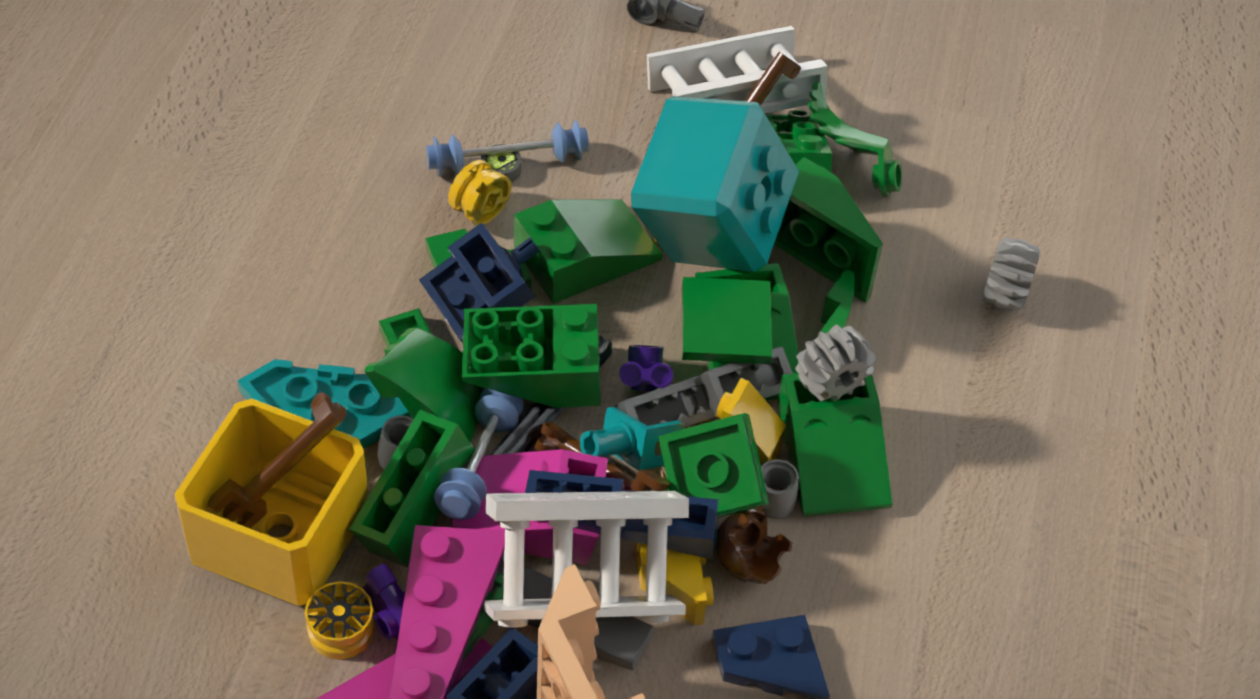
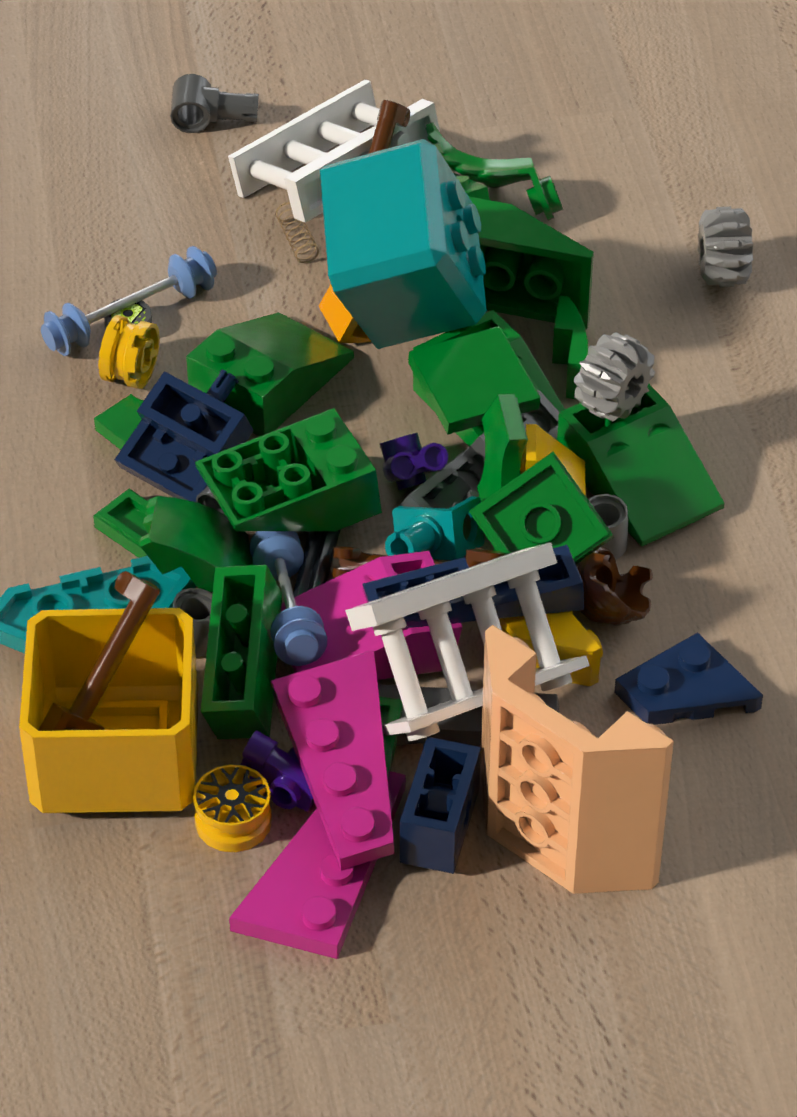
camera: 20 degrees left, 5 degrees down
(713, 388) = (503, 444): none -> green tile

